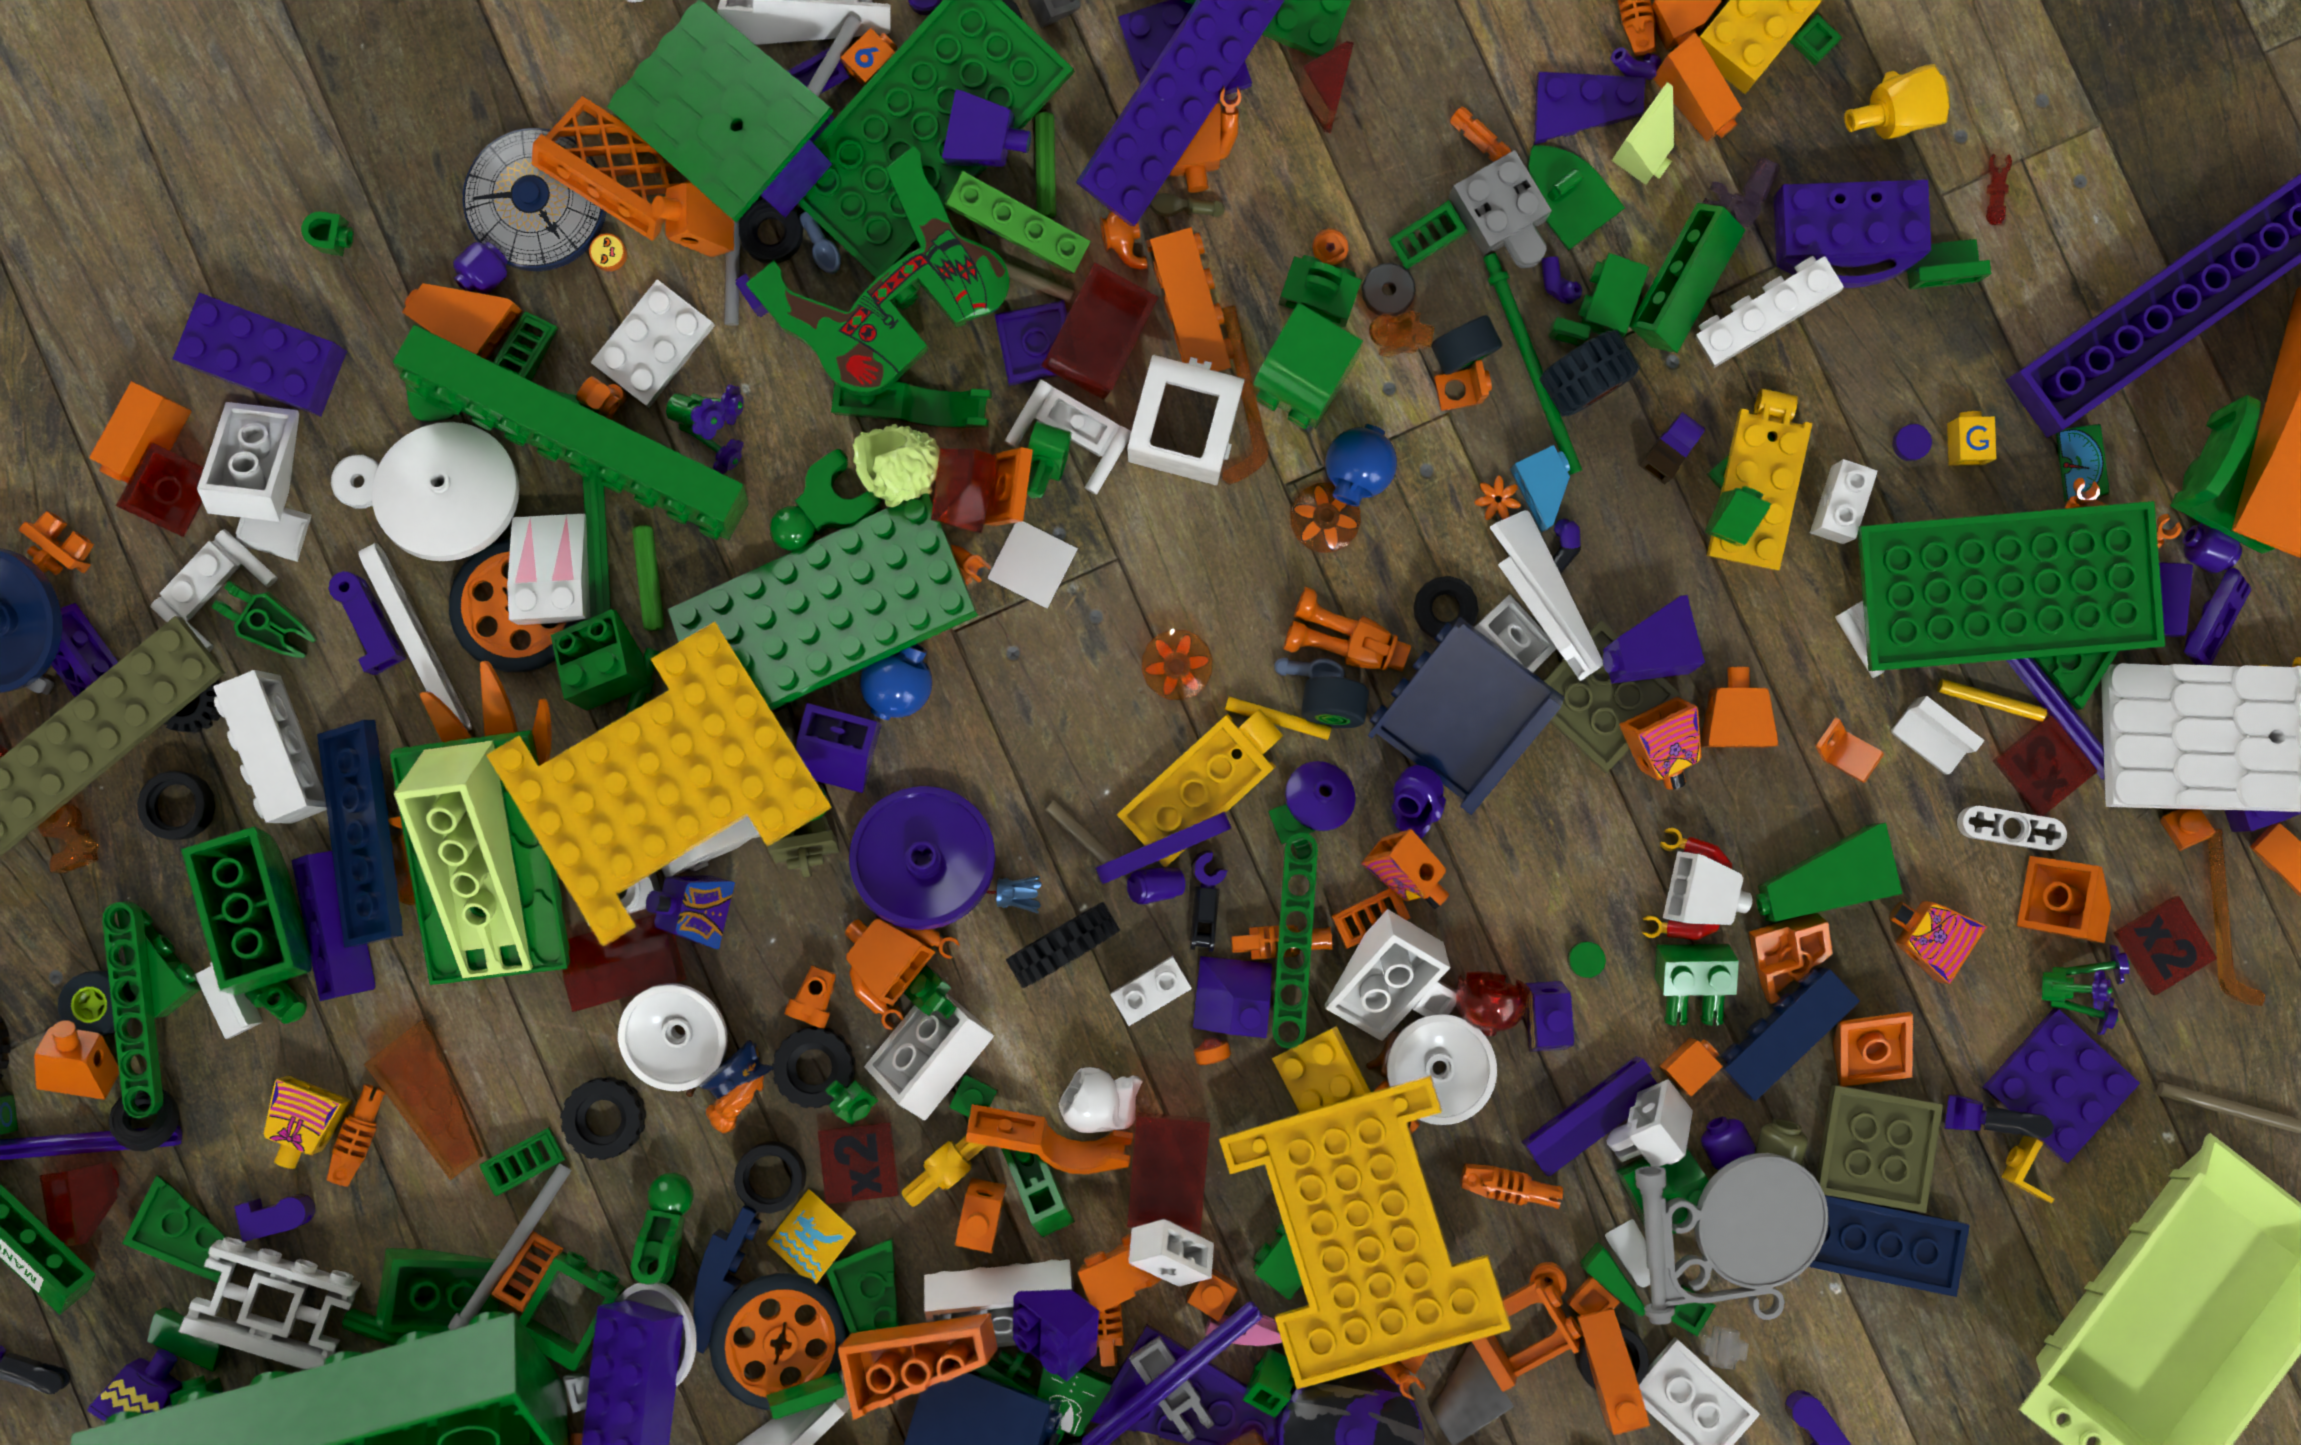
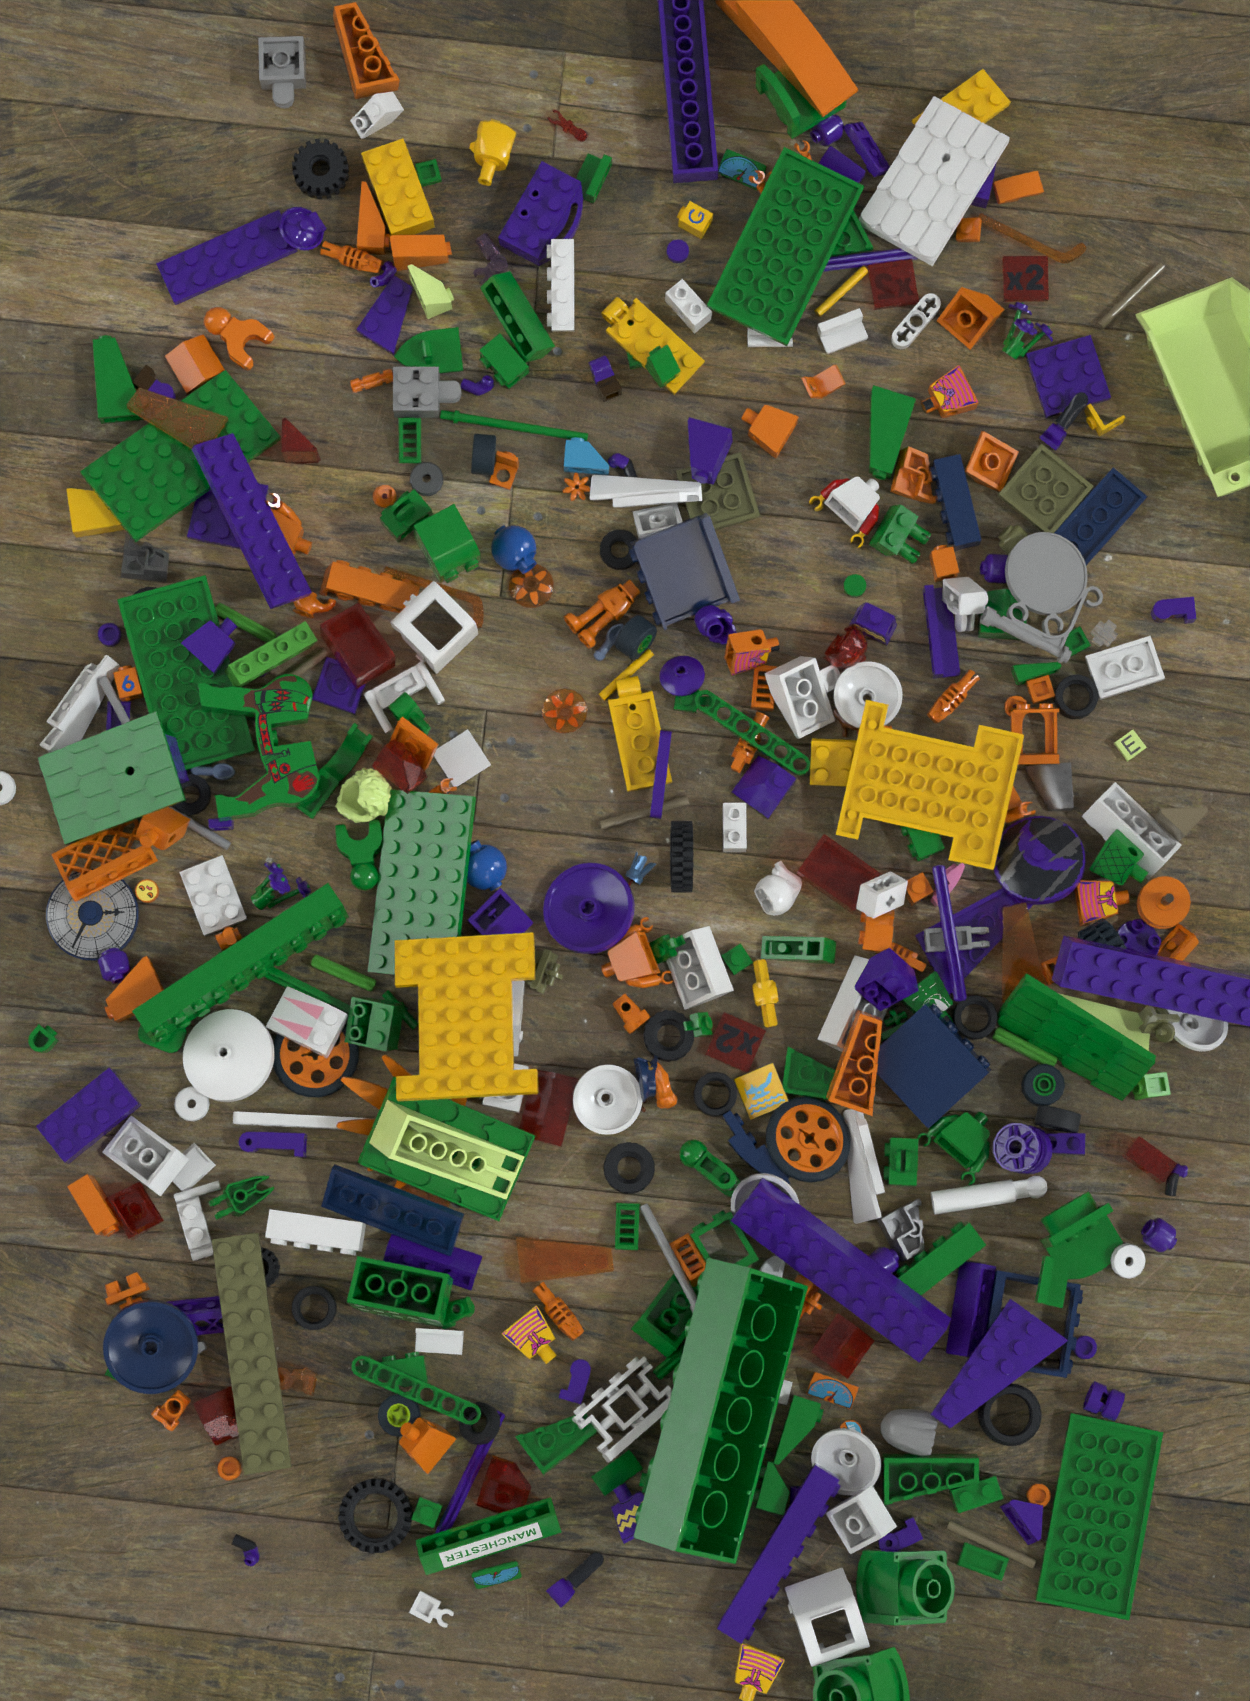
camera: 60 degrees left, 5 degrees down
(513, 343) = (170, 948): green slope -> none
(692, 907) = (543, 1049): torso -> none
(805, 1395) = (845, 1139): green tile -> none
(980, 1215) = (804, 991): orange torso -> none
(1034, 1136) = (774, 936): orange piece -> none
(1155, 884) = (678, 791): dark purple piece -> none
(1169, 205) = (308, 568): olive piece -> none
(1205, 901) = (702, 770): black piece -> none
(1212, 1051) = (786, 814): orange tile -> none
(1270, 1383) = (983, 885): green brick -> none
(1400, 333) = (456, 485): clear orange hips -> none
(1569, 331) = (508, 396): green tile -> none
(1589, 373) = (538, 398): black wheel -> none
(1612, 1372) = (1081, 698): orange slope -> none
(1631, 1249) = (1026, 653): white sticker -> none
(1665, 741) = (761, 474): orange torso -> none

